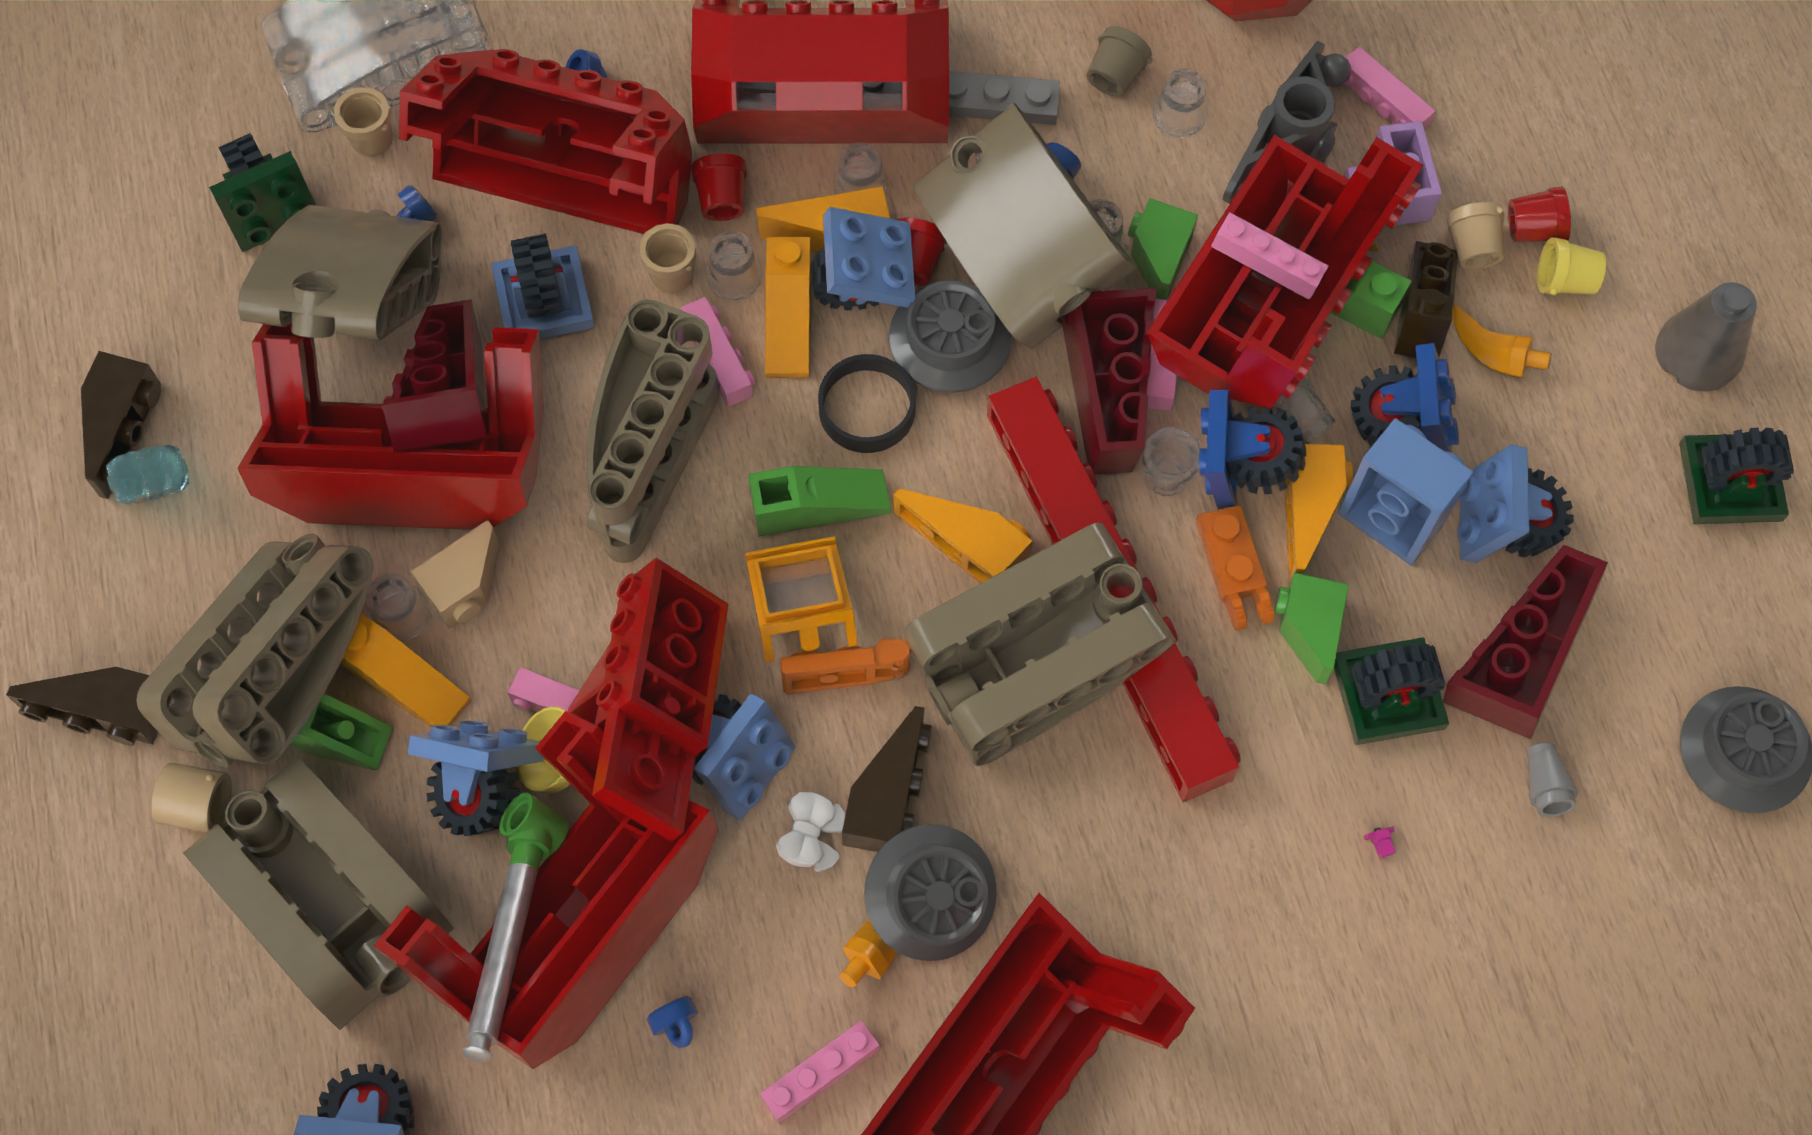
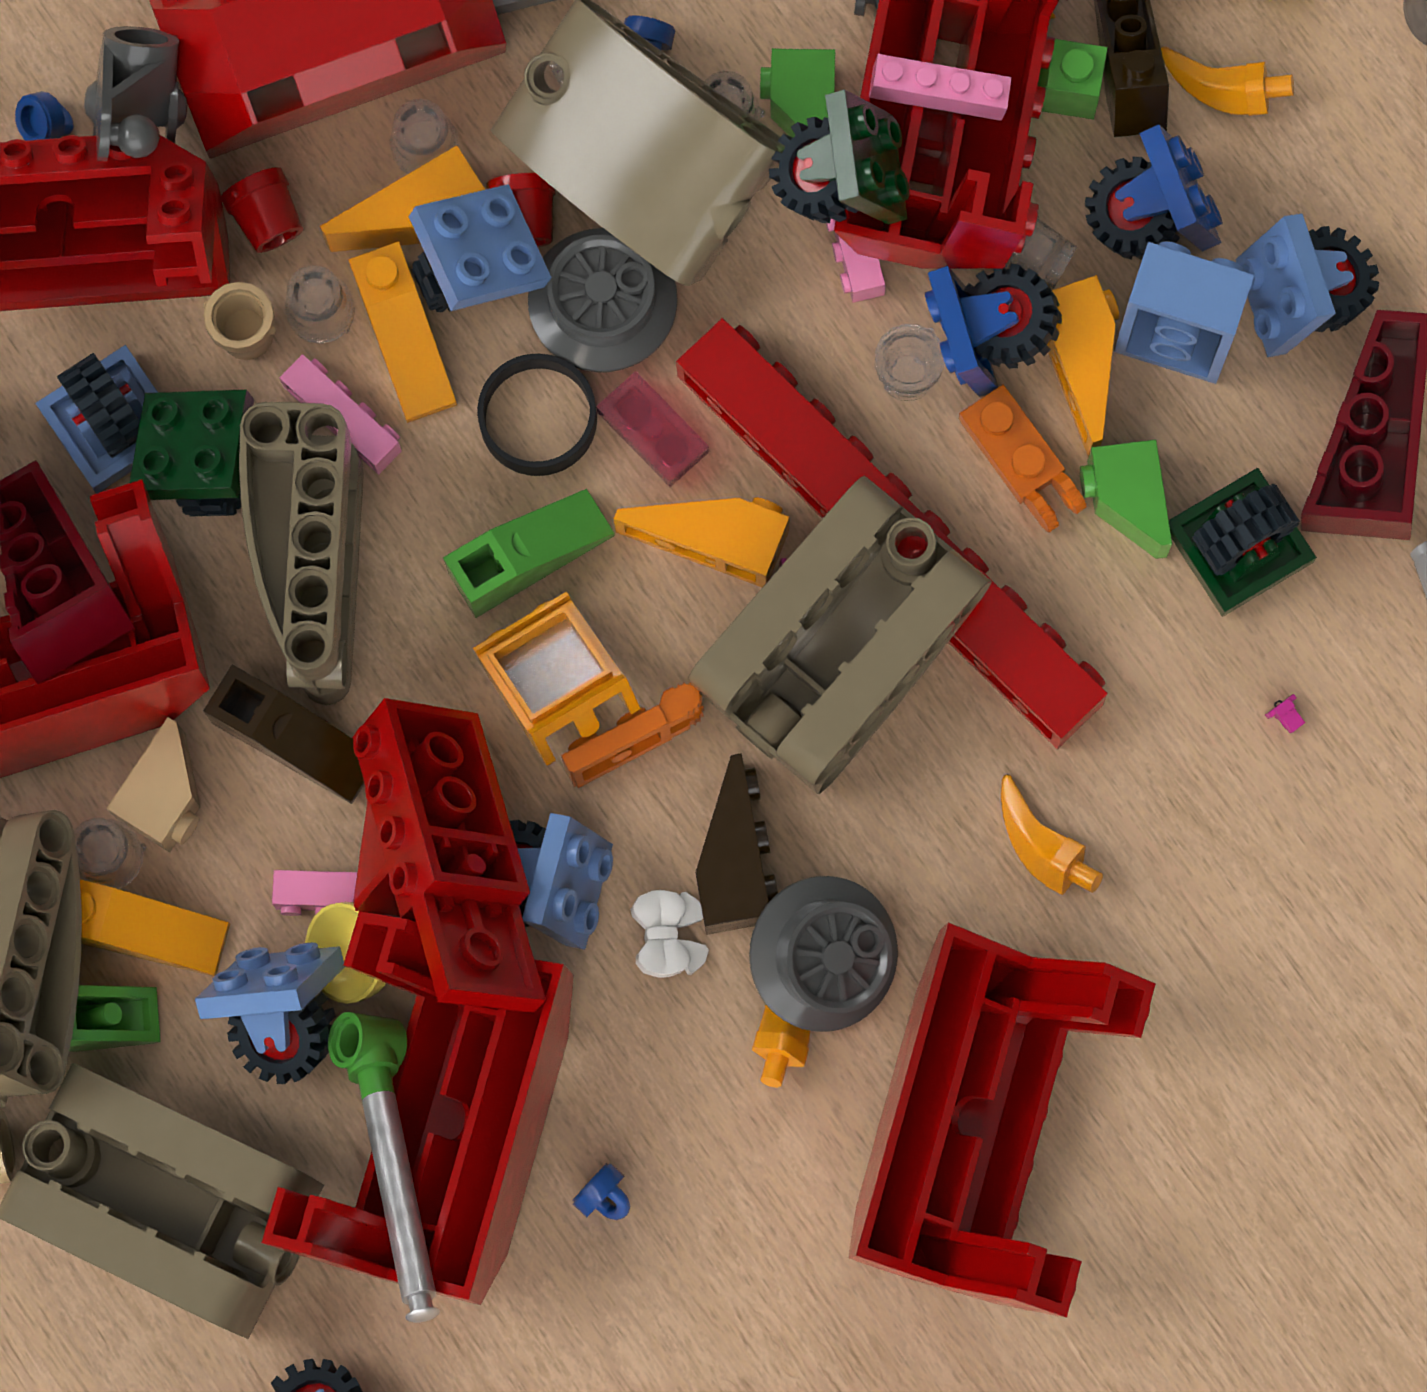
camera: 15 degrees left, 10 degrees up
(571, 563) = (286, 732): none -> dark brown slope
(583, 327) = (192, 449): none -> dark green plate
(654, 56) = (135, 91): none -> dark grey piece
(819, 1072) = (778, 1189): bright pink piece -> none
(951, 443) = (652, 429): none -> clear pink plate
(1110, 374) = (807, 294): dark red wedge -> none
(1142, 878) = (1044, 853): none -> light orange bar
(1173, 281) = (843, 163): none -> plate

